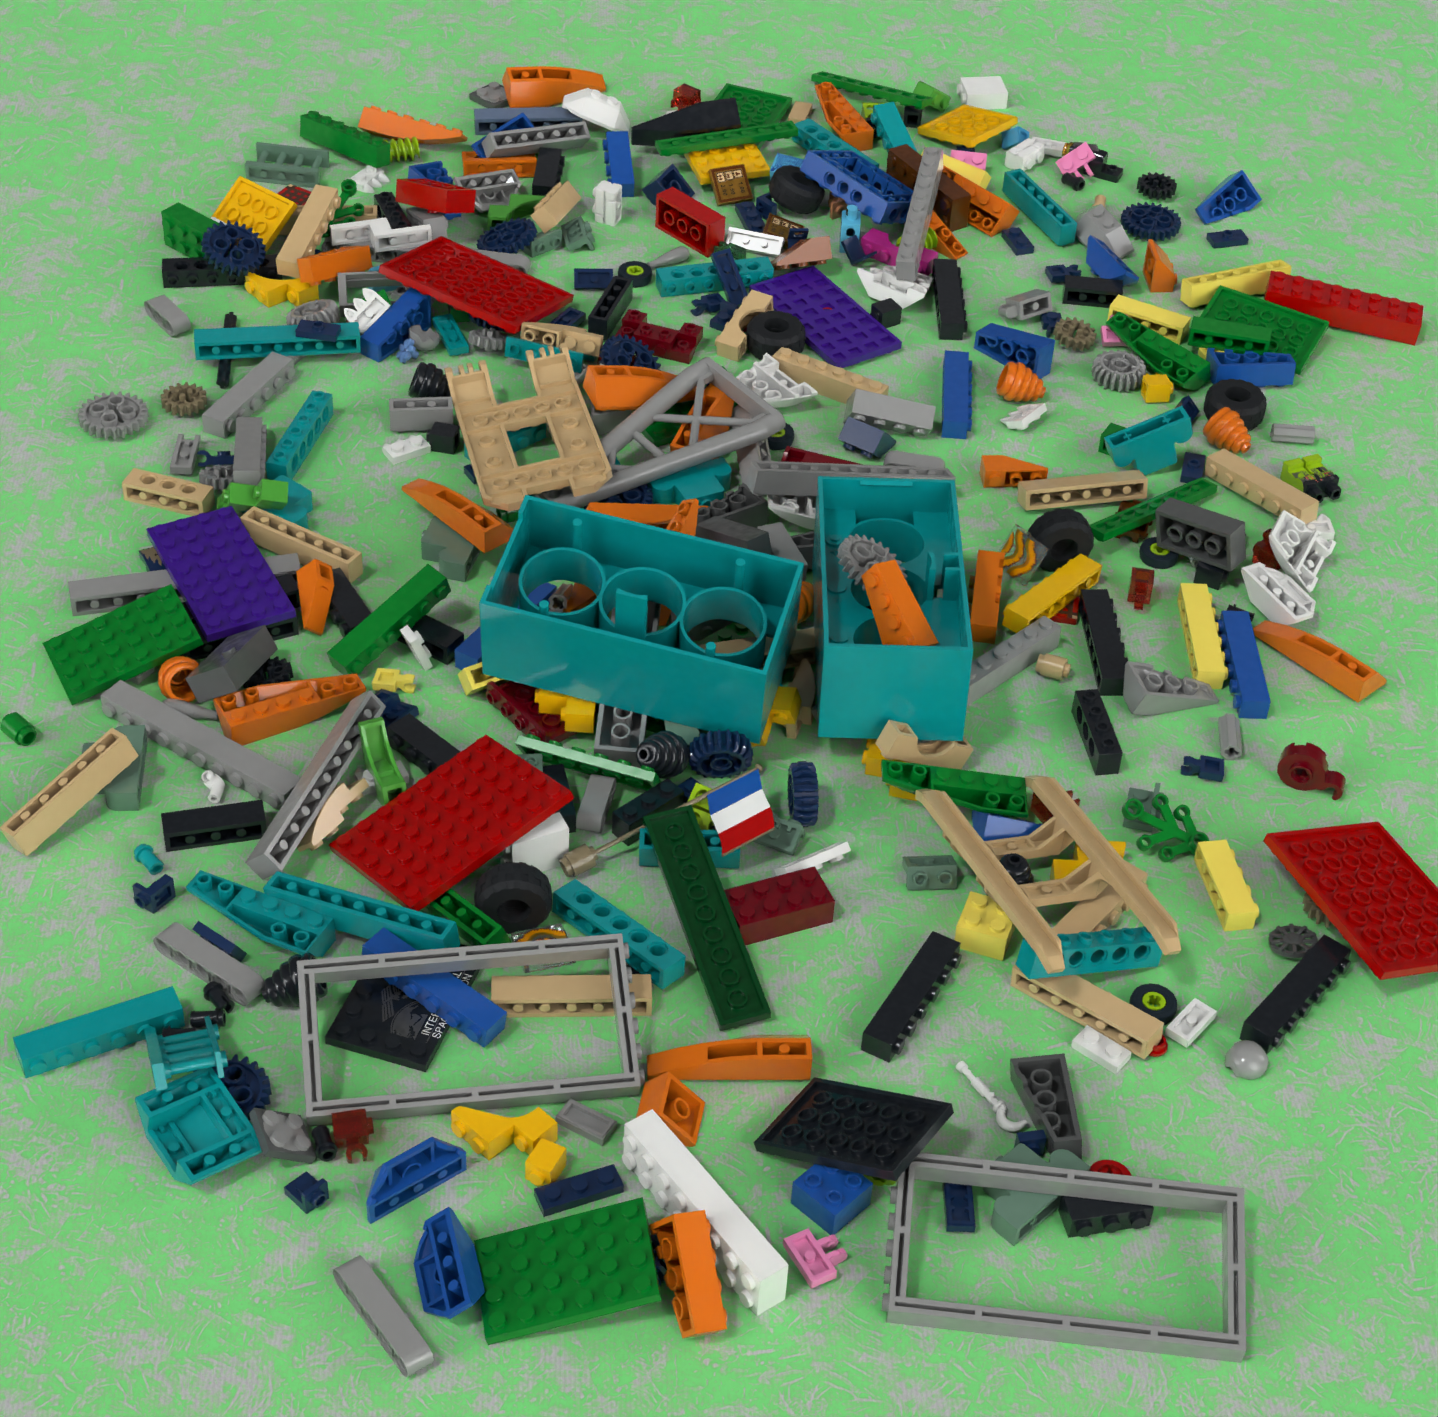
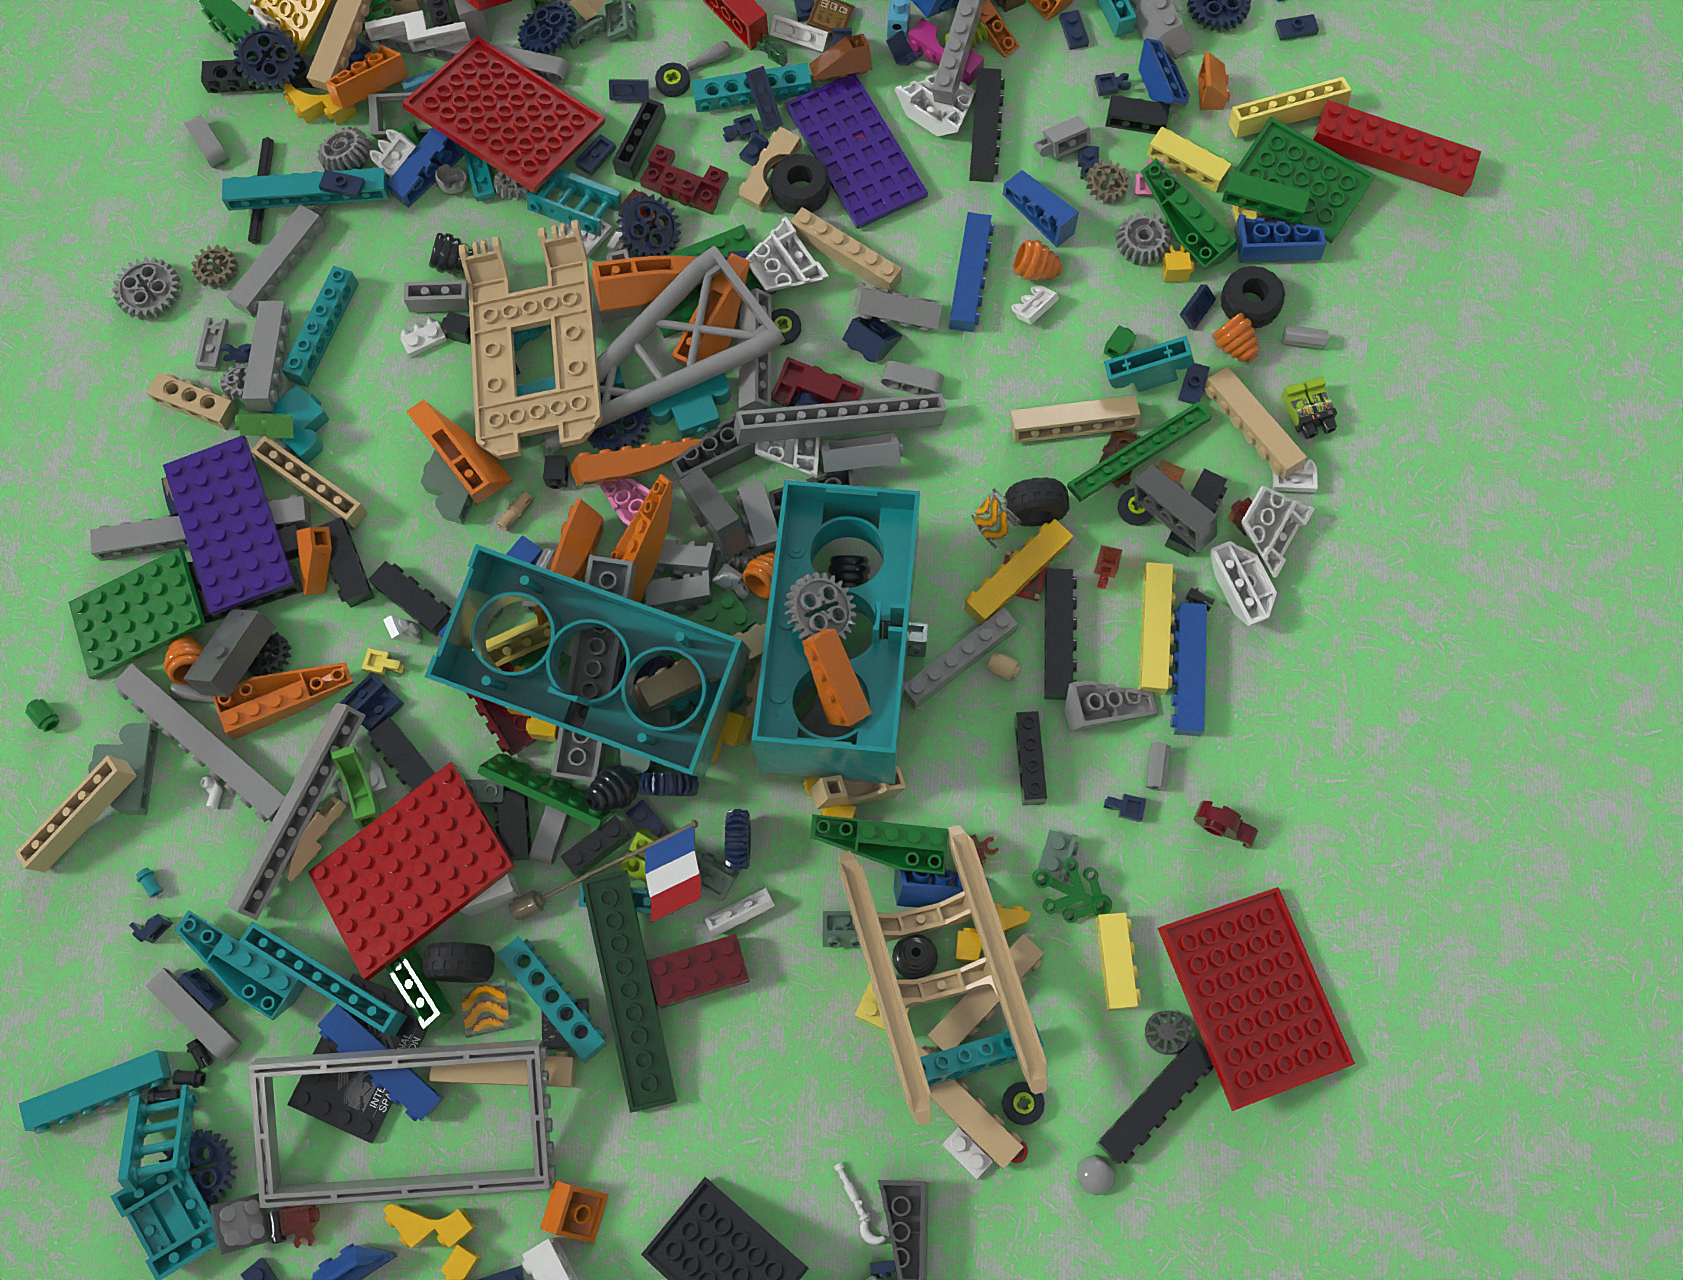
camera: 10 degrees right, 30 degrees up
(213, 825) = (207, 845): black brick -> none
(283, 985) = (264, 1042): black piece -> none
(384, 624) = (378, 600): green brick -> none
(407, 351) = (434, 197): medium blue plant -> none
(553, 334) = (580, 192): tan slope -> none
(586, 1122) = (503, 1212): light grey tile -> none
(737, 1059) = (641, 1148): orange wedge -> none
(887, 312) = (918, 147): black brick -> none
(911, 997) = (804, 1086): black brick -> none
(985, 595) = (952, 575): orange wedge -> none
(1008, 471) = (1003, 388): orange slope -> none
(1190, 1022) = (1053, 1129): white plate -> none
(1322, 659) = (1273, 667): orange wedge -> none

